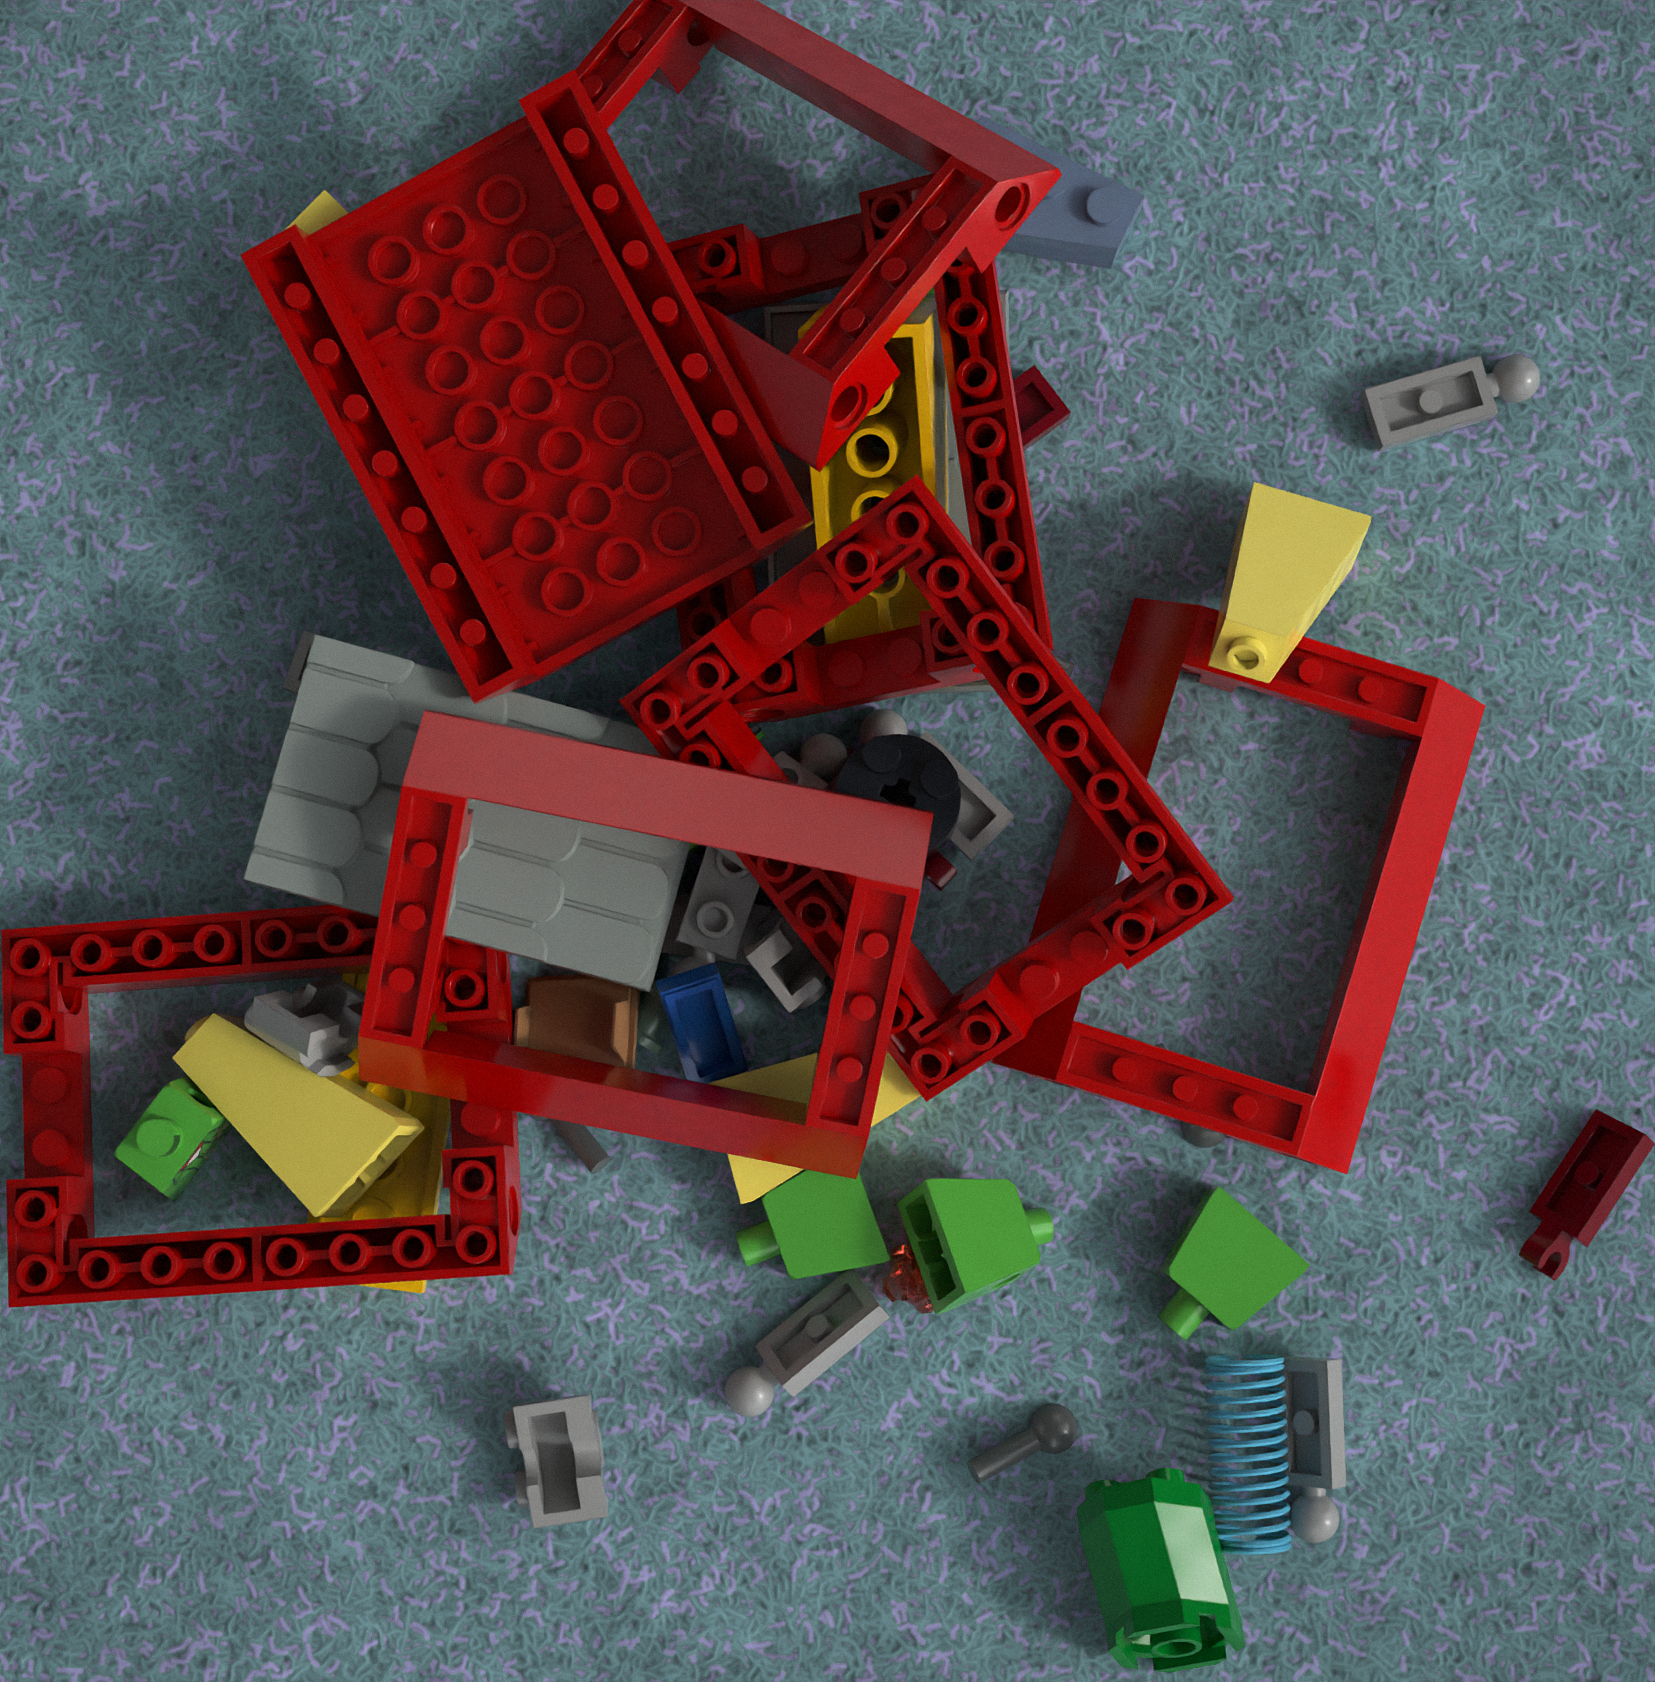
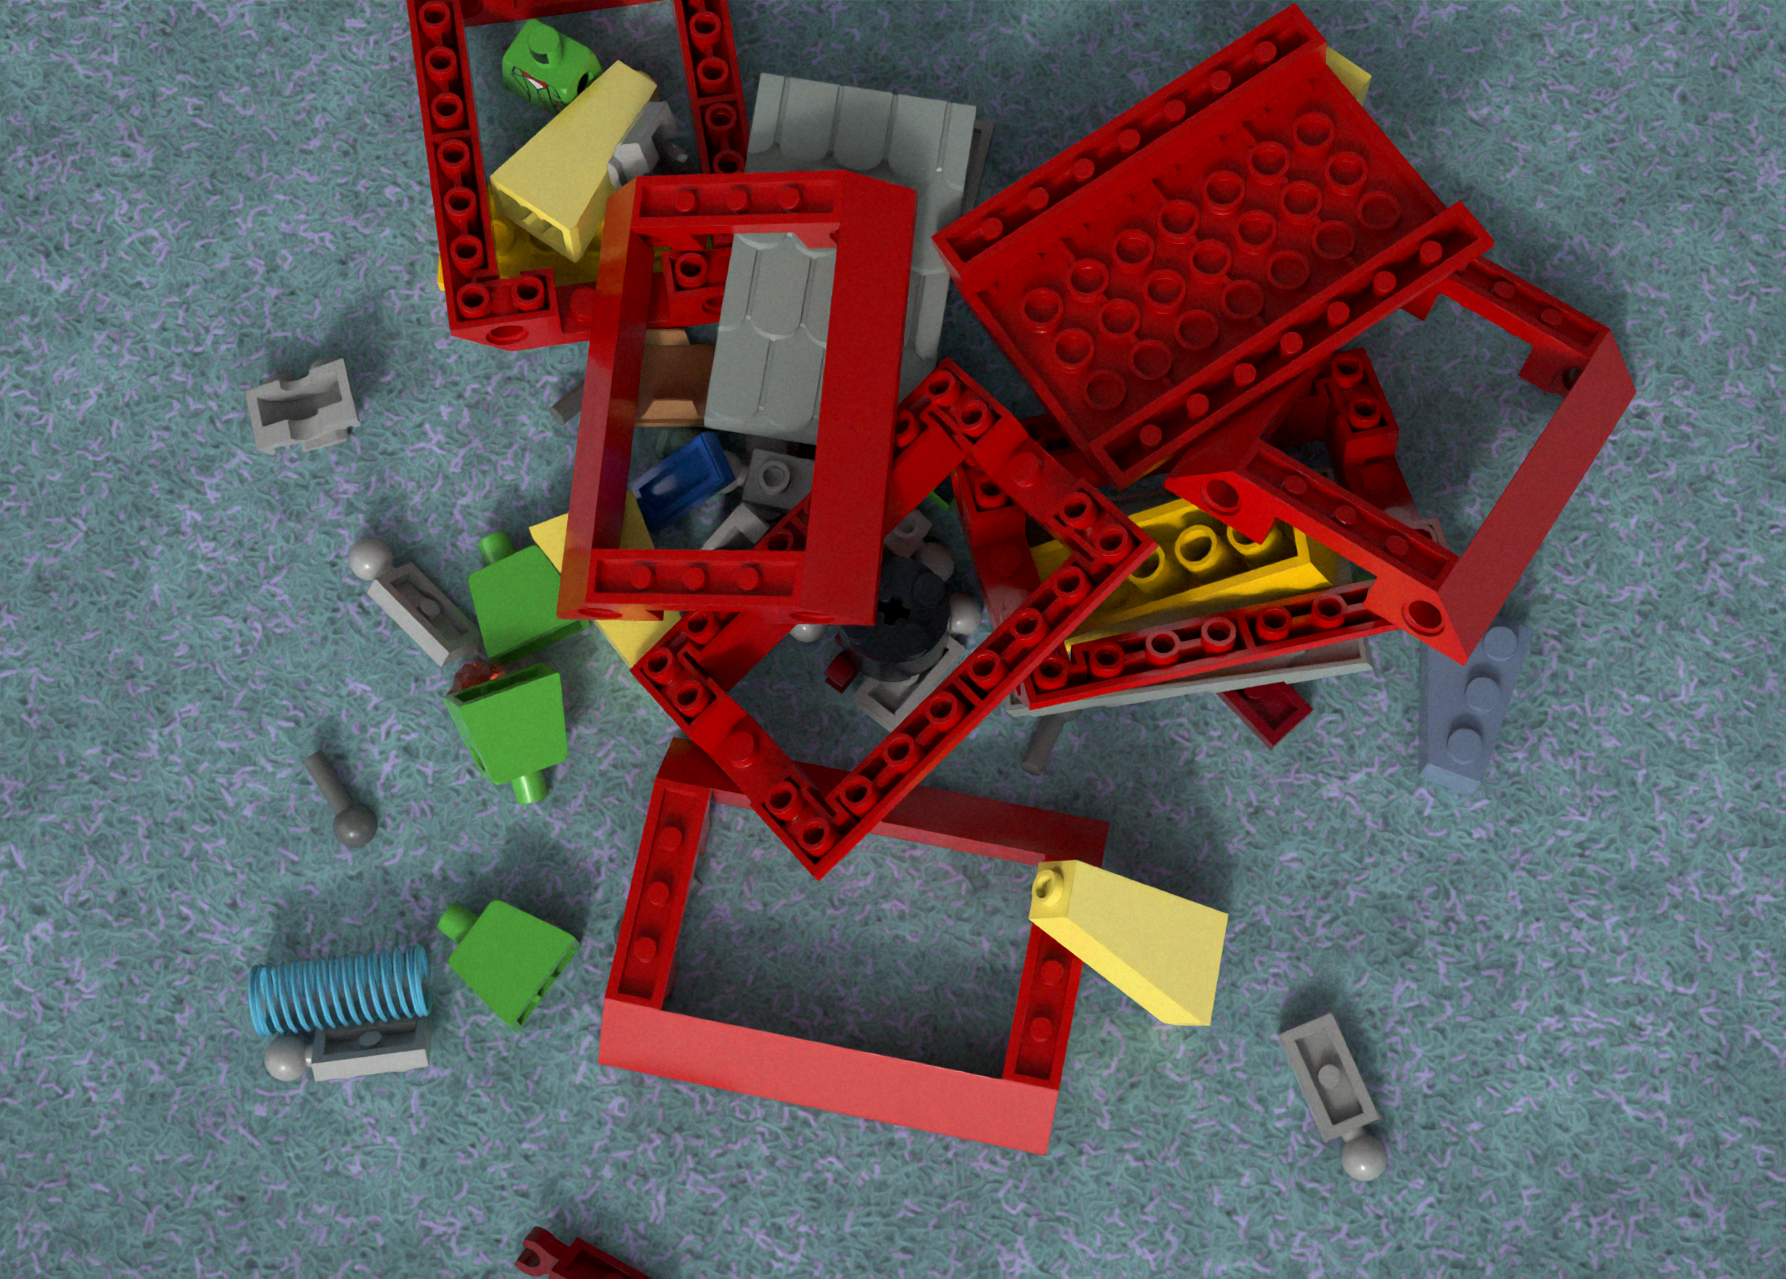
camera: 85 degrees right, 10 degrees down
(1159, 1572) = (230, 916): green brick -> none

